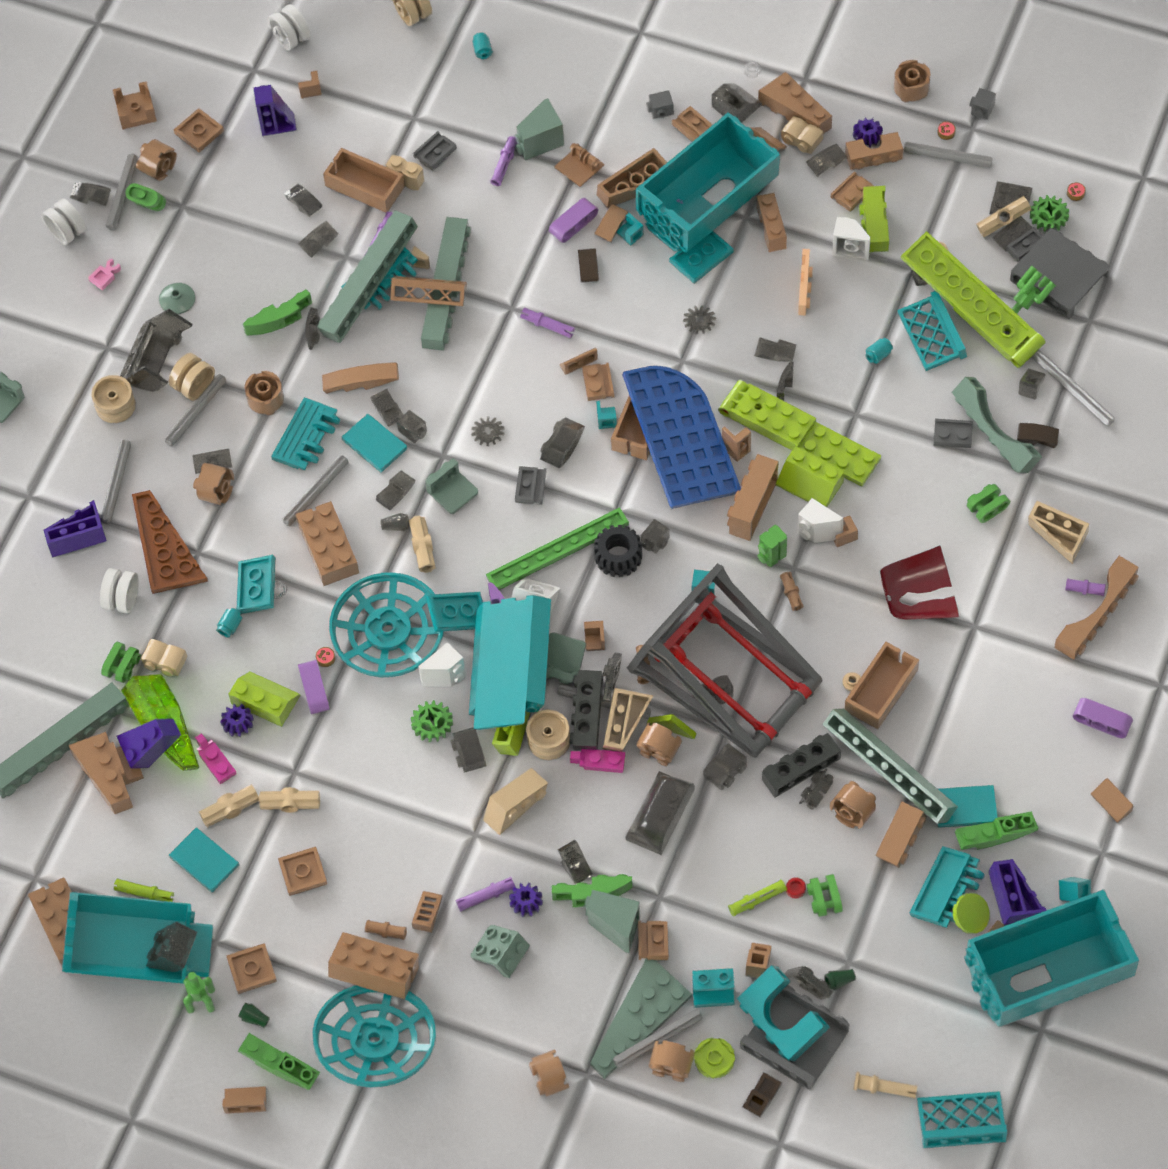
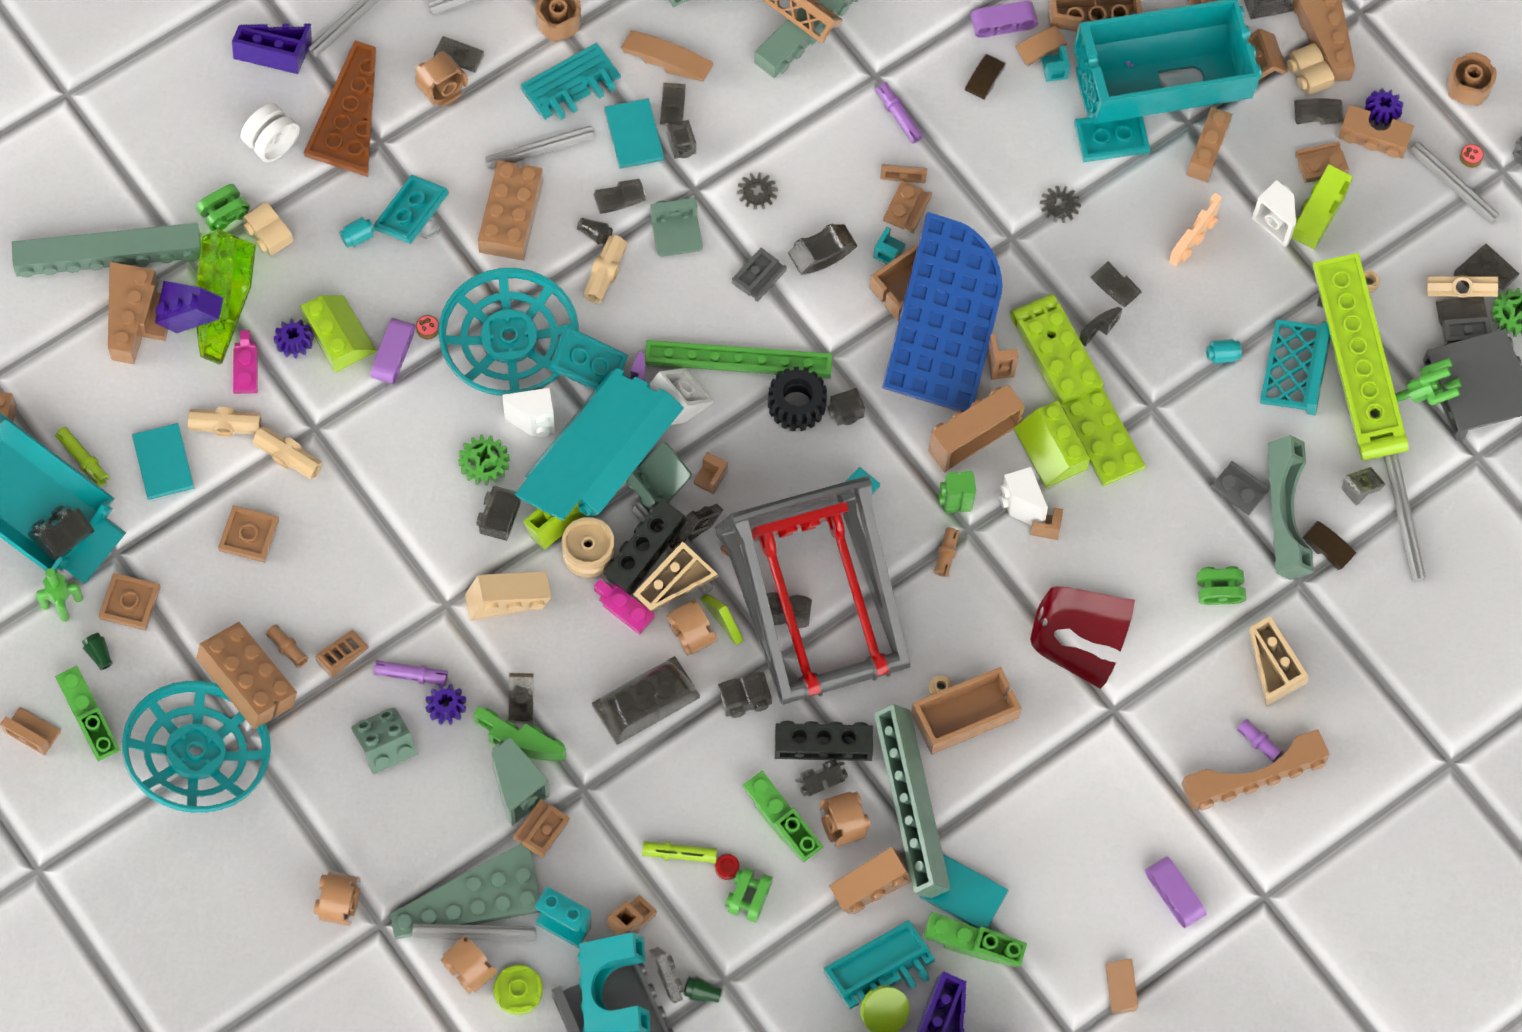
camera: 25 degrees right, 5 degrees up
(810, 832) = (782, 817): none -> bright green slope

